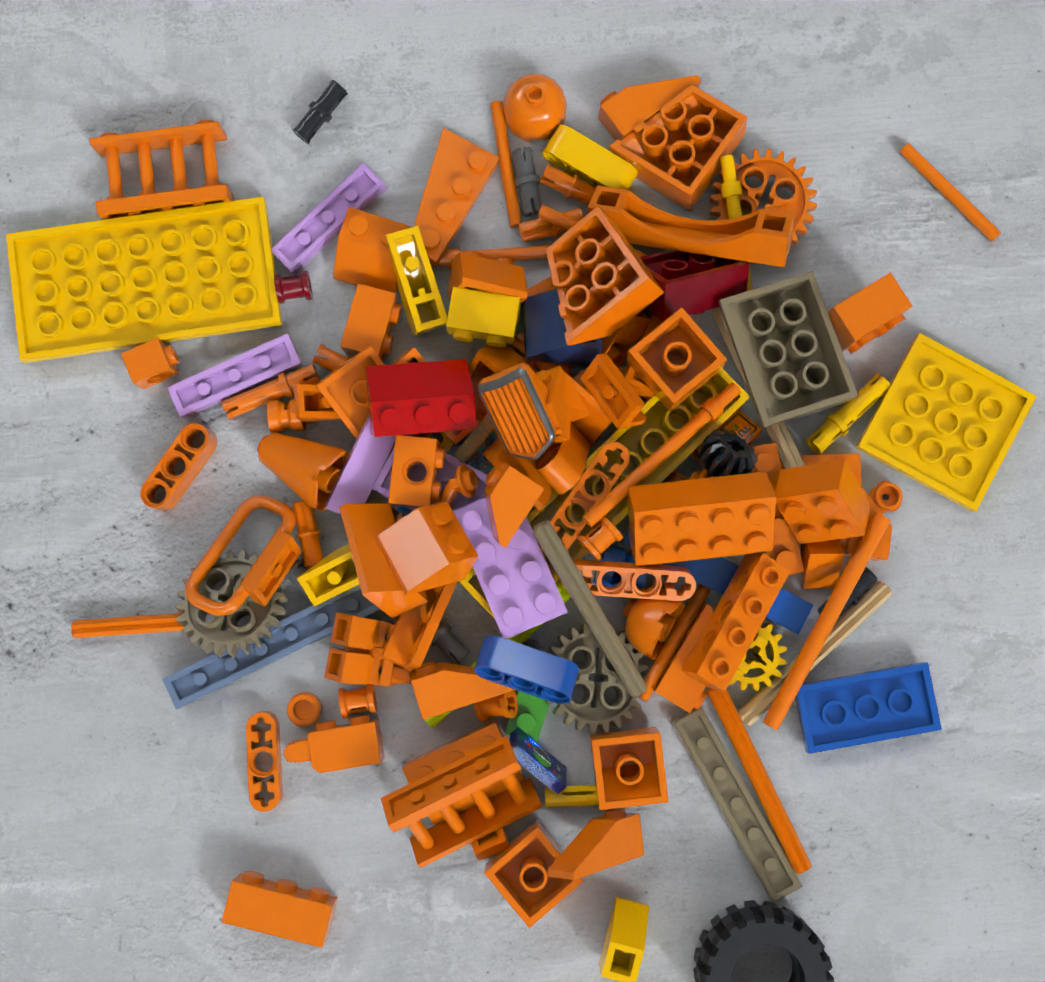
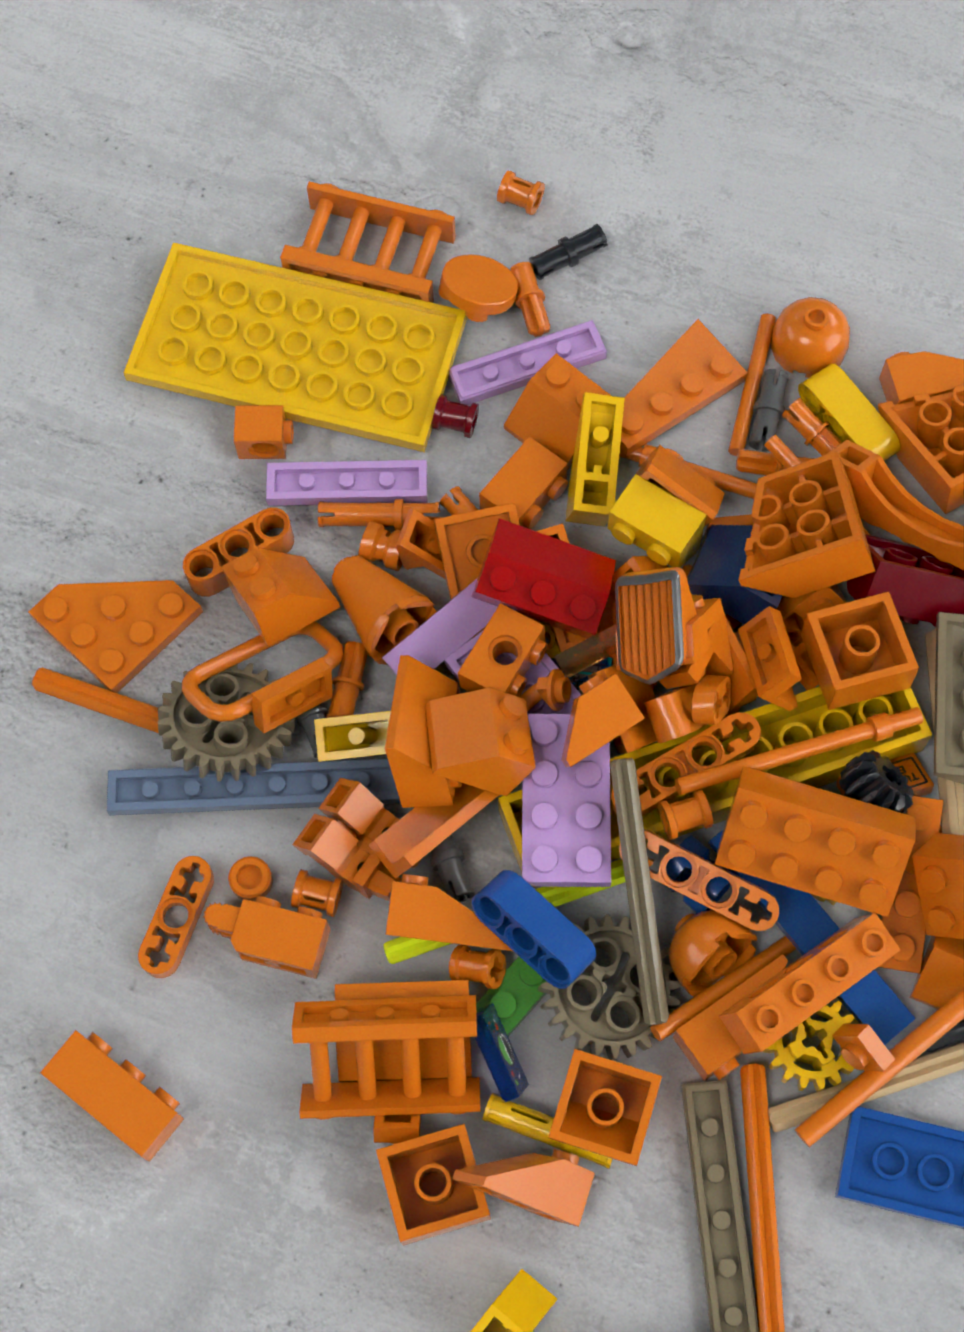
camera: 25 degrees right, 15 degrees down
(113, 562) = (115, 625): none -> orange plate
(224, 488) = (278, 592): none -> orange slope
(260, 76) = (520, 192): none -> orange bush
(263, 171) = (478, 286): none -> orange tile
(307, 164) = (530, 299): none -> orange axle
(583, 444) = (711, 699): none -> orange beam
(789, 650) = (863, 1048): none -> orange plate

